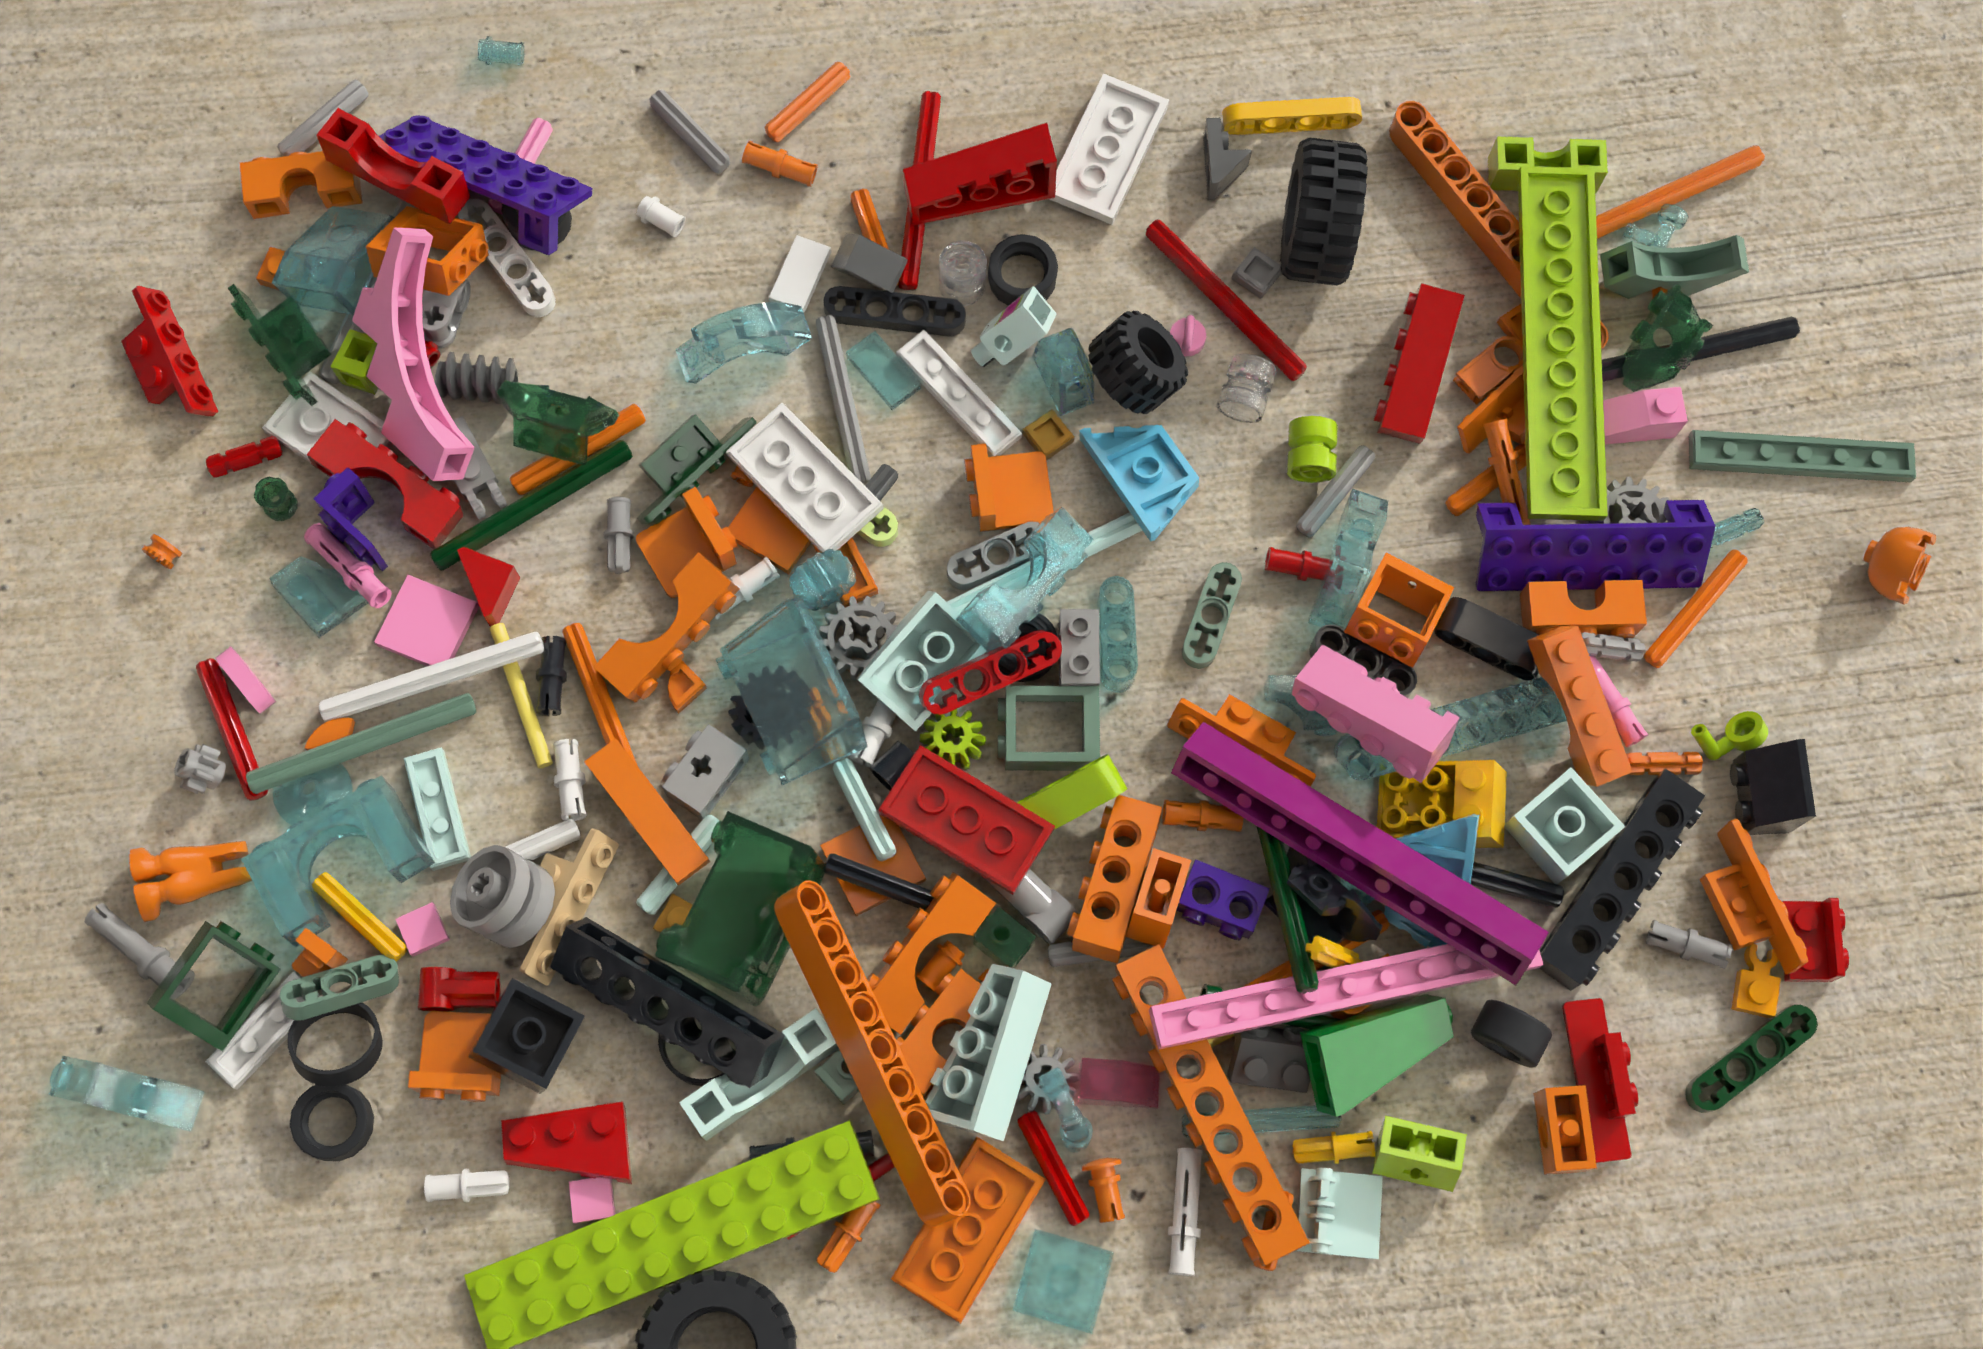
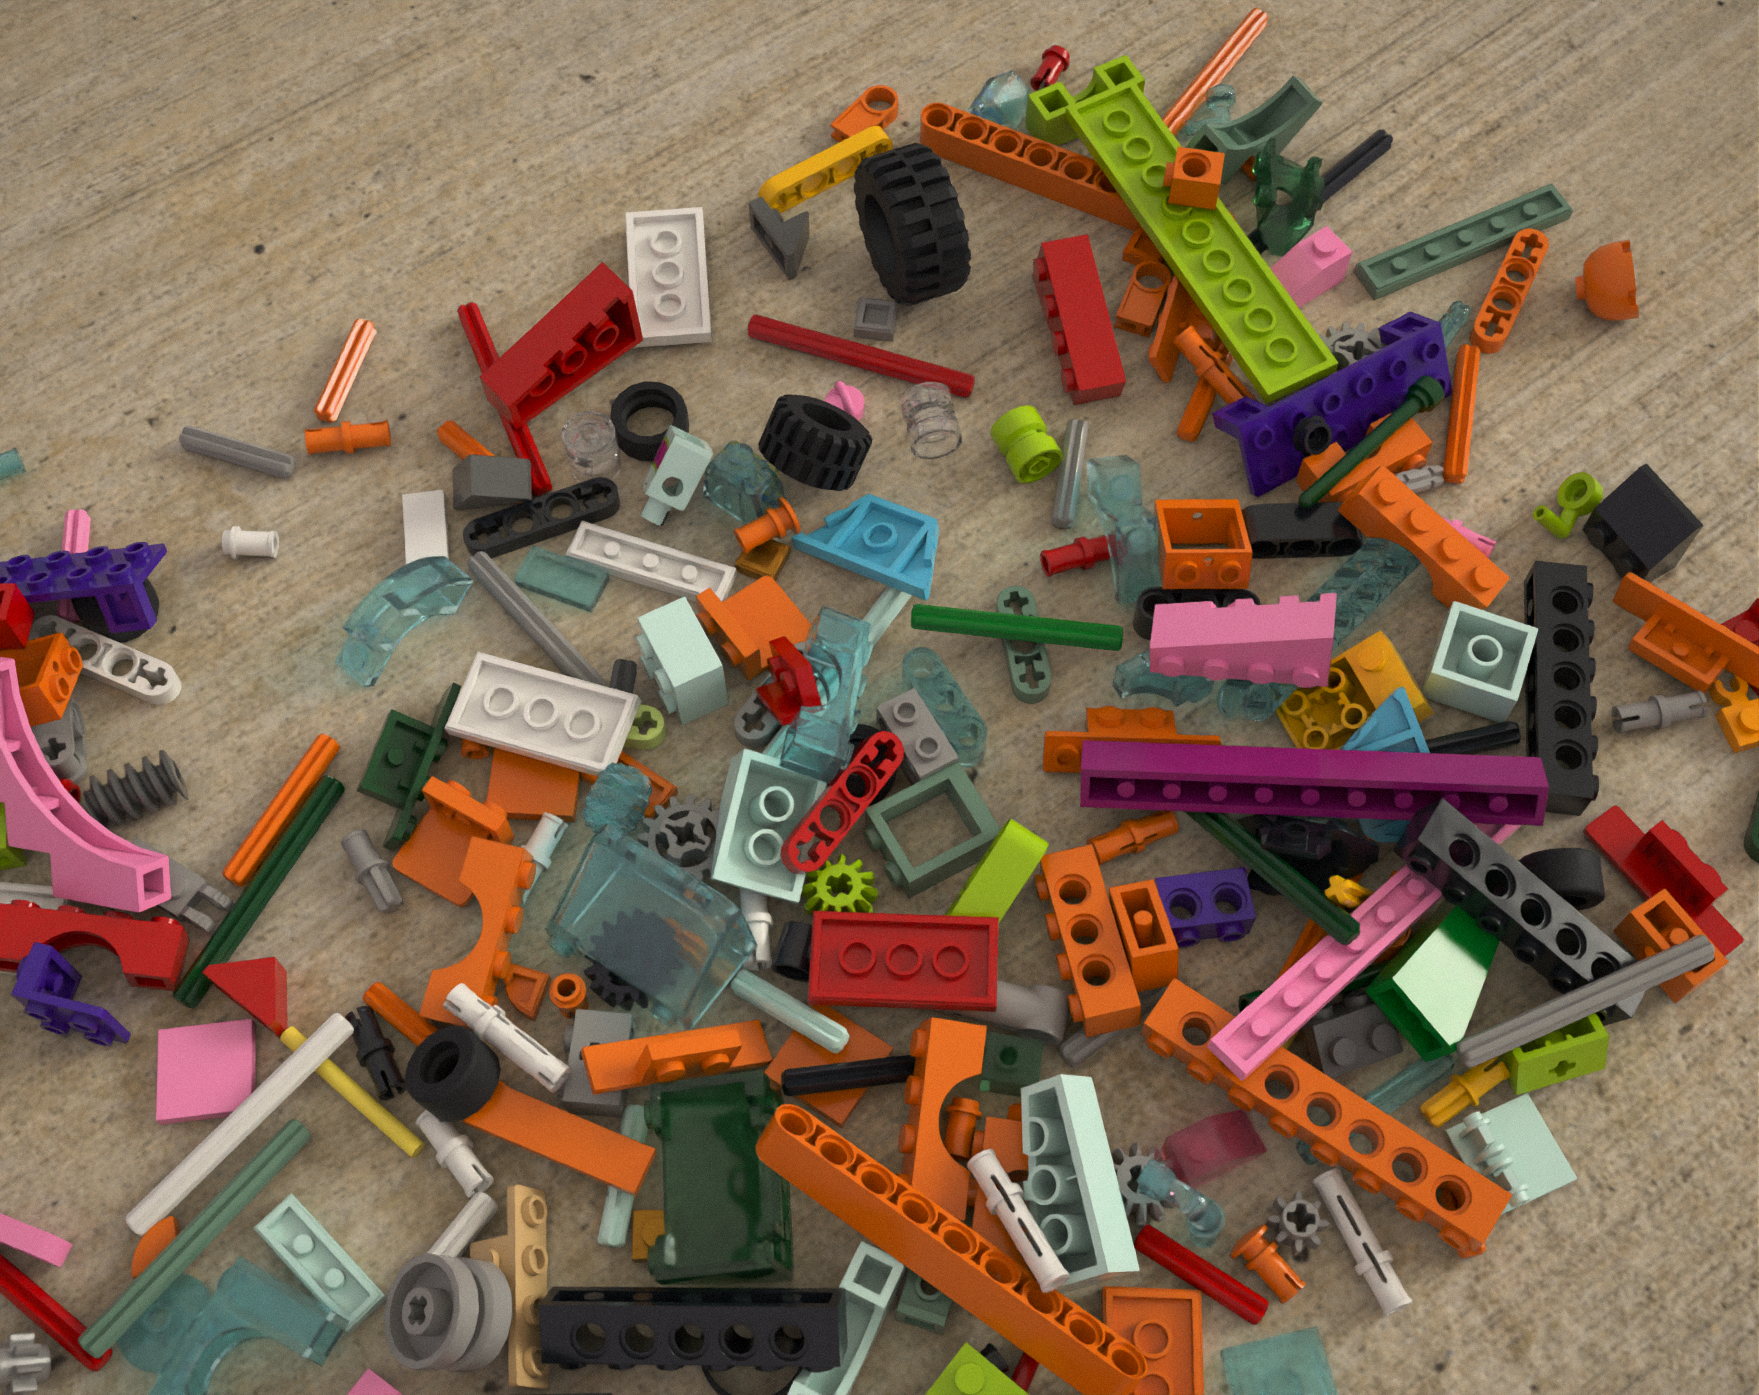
camera: 25 degrees left, 10 degrees down
(317, 594) = (68, 1102): clear light blue wing -> none
(356, 574) = (99, 1056): bright pink pin -> none
(554, 420) = (242, 790): clear green piece -> none
(594, 724) = (452, 1073): none -> black tyre
(640, 706) = (492, 1025): none -> white pin
(706, 702) = (562, 997): none -> orange pin
(761, 799) = (675, 1056): none -> orange bracket
(931, 491) = (681, 661): none -> light aqua brick
(935, 1009) = (988, 1172): none -> white pin
(999, 561) = (792, 685): none -> red bracket
(1064, 413) = (768, 526): none -> orange pin
(1156, 1171) = (1306, 1215): none -> light grey gear
(1211, 601) = (1017, 627): none -> green axle
(1350, 82) = (861, 116): none -> orange piece
(1462, 1135) = (1585, 1001): none -> light grey axle
(1475, 128) = (1002, 100): none -> clear light blue brick
(1507, 1130) = (1512, 904): none -> black brick
(1545, 567) = (1312, 435): none -> black plate
(1548, 110) = (1054, 63): none -> red pin
(1585, 305) = (1194, 177): none -> orange brick
(1656, 762) = (1520, 563): orange axle -> none
(1663, 580) = (1421, 397): none -> dark green piece
(1810, 521) = (1509, 290): none -> orange beam

